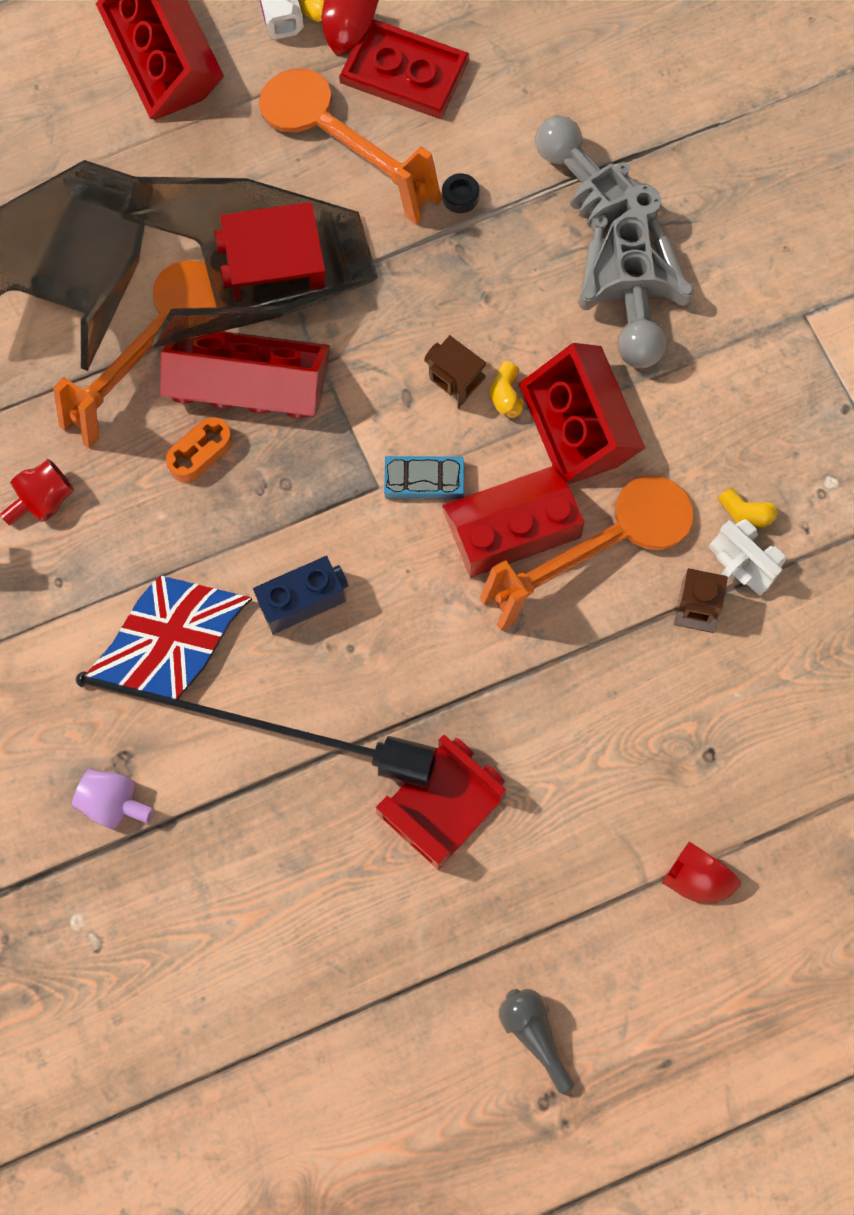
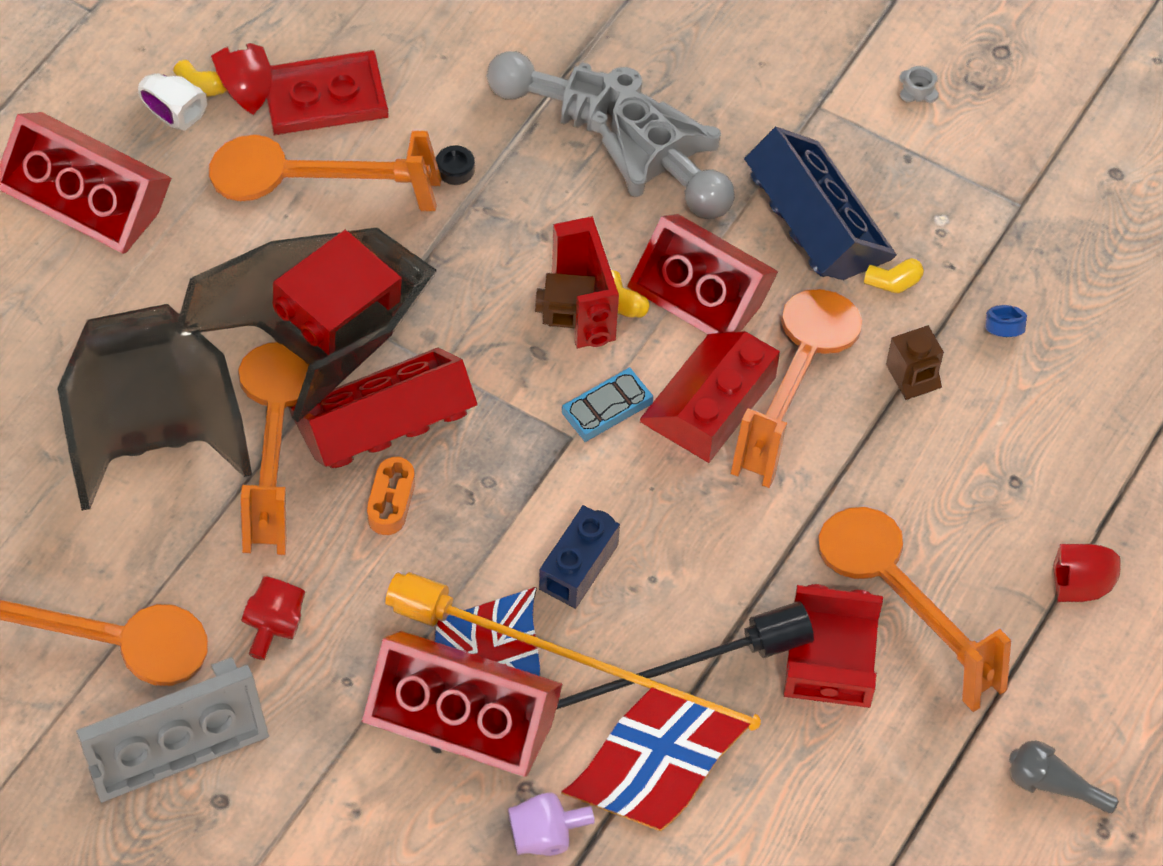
camera: 40 degrees left, 15 degrees down
(115, 659) = (461, 702): none -> red slope
(242, 793) = (655, 750): none -> flag
(485, 332) = (580, 252): none -> red panel
(537, 731) = (869, 545): none -> orange piece
(729, 407) = (817, 205): none -> dark blue slope
(744, 559) = (918, 308): white hips -> none
(809, 610) = (1006, 321): none -> blue tile

